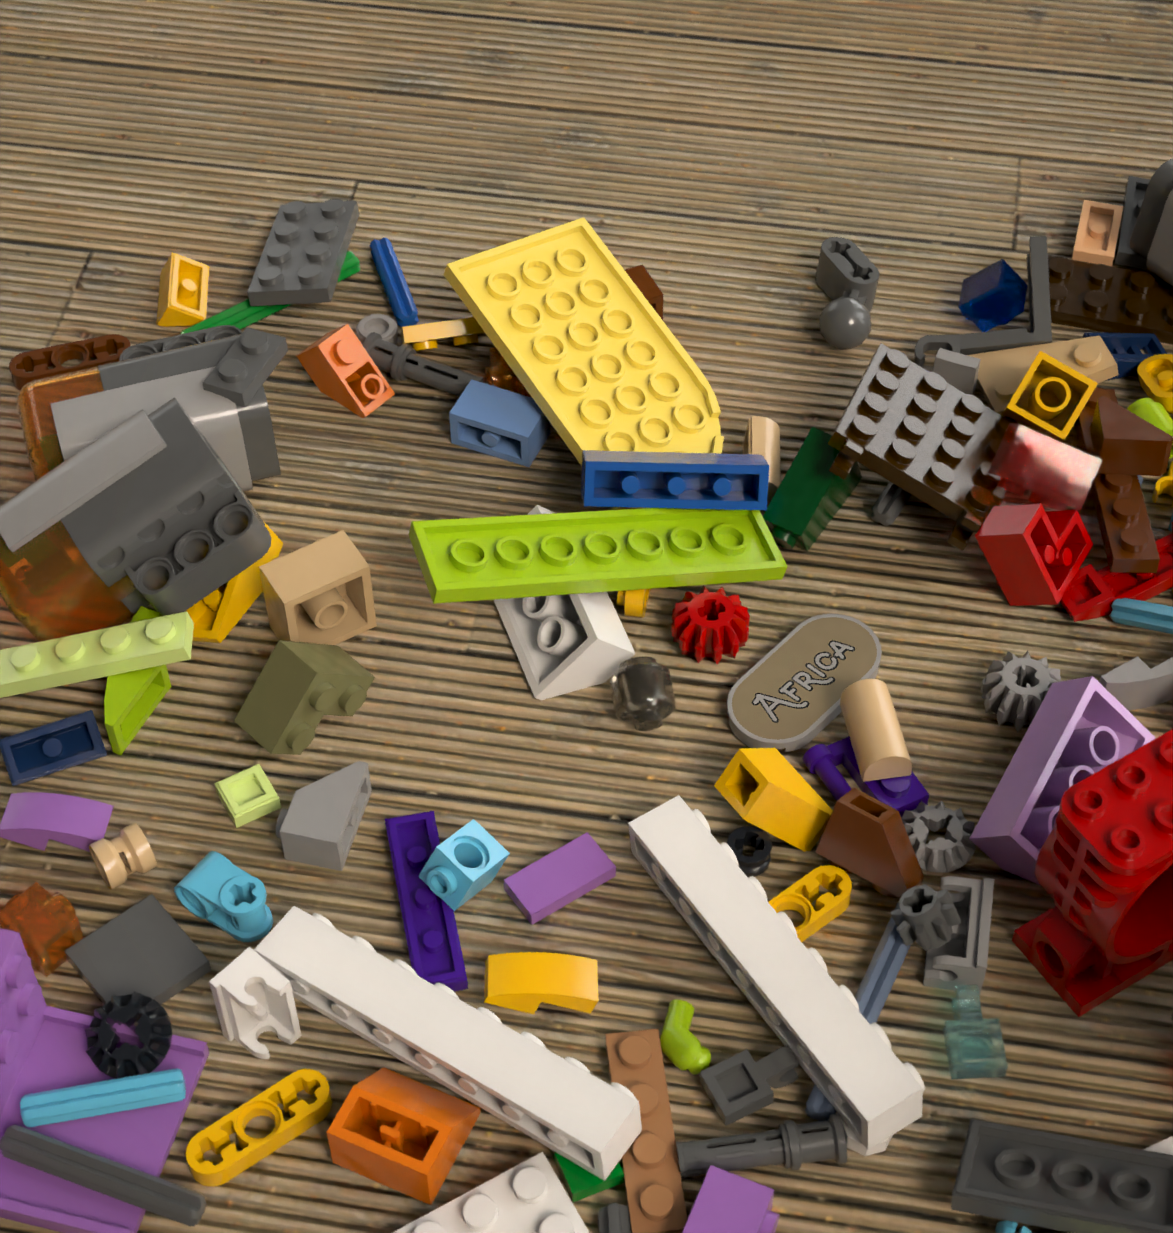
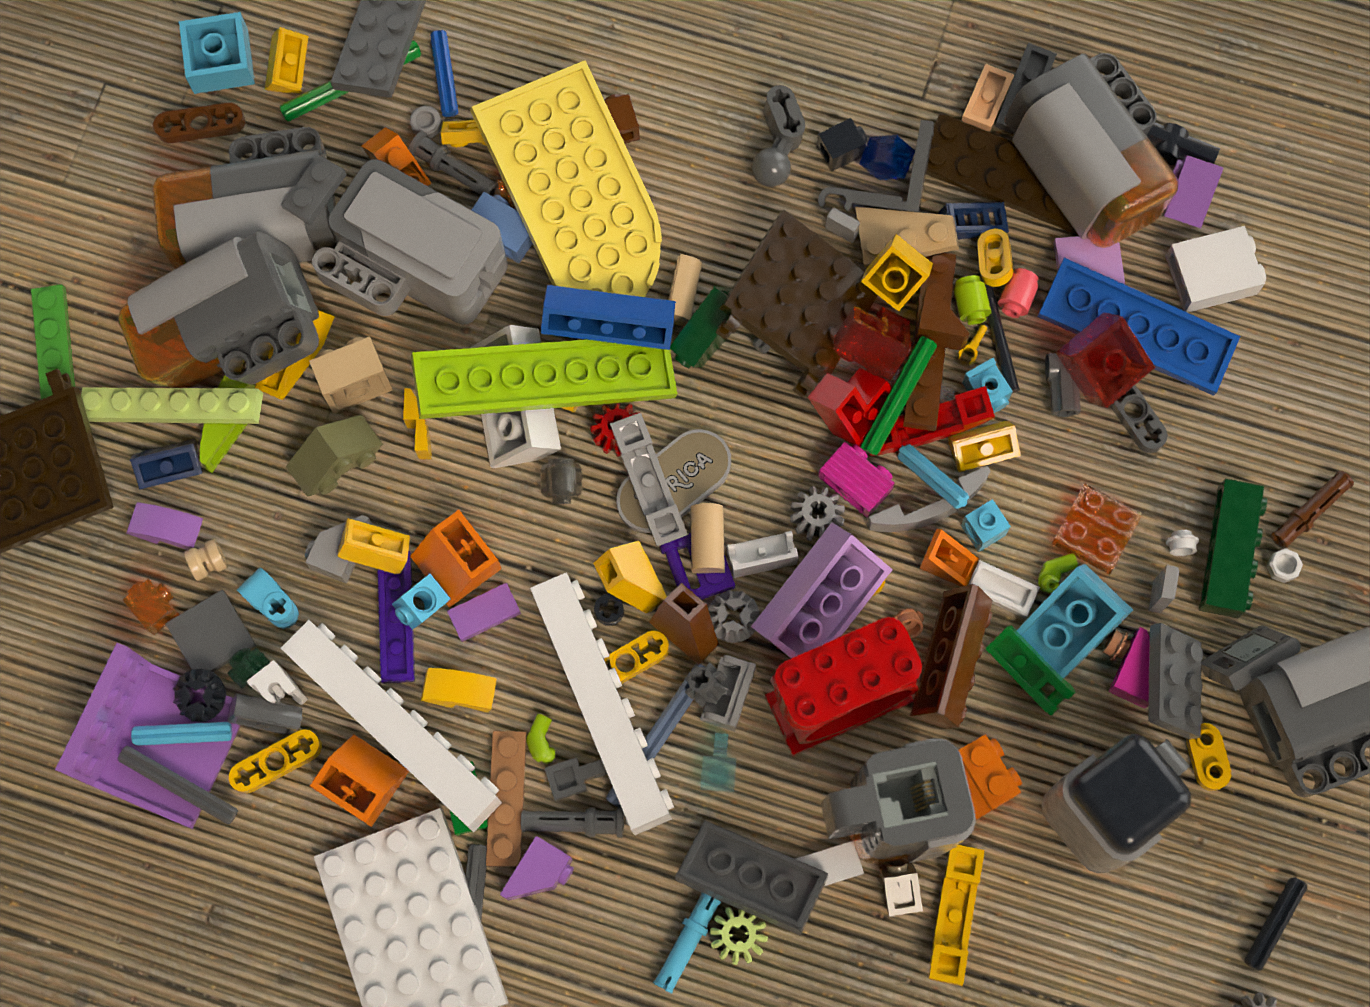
camera: 10 degrees right, 25 degrees up
(91, 282) = (216, 52): none -> medium azure brick
(194, 992) = (246, 665): none -> clear green gear
(236, 1051) = (264, 715): none -> dark grey brick
(247, 795) = (291, 519): yellowish green tile -> none
(381, 800) = (374, 546): none -> yellow slope
(385, 433) = (411, 244): none -> light grey piece
(421, 650) = (412, 421): none -> yellow slope
(511, 797) = (456, 557): none -> orange slope
(767, 671) = (648, 479): none -> light grey slope
(927, 294) = (842, 144): none -> black brick
(961, 753) = (762, 554): none -> white hinge
(1066, 639) = (857, 478): none -> dark pink brick
(1096, 532) = (899, 395): none -> green axle

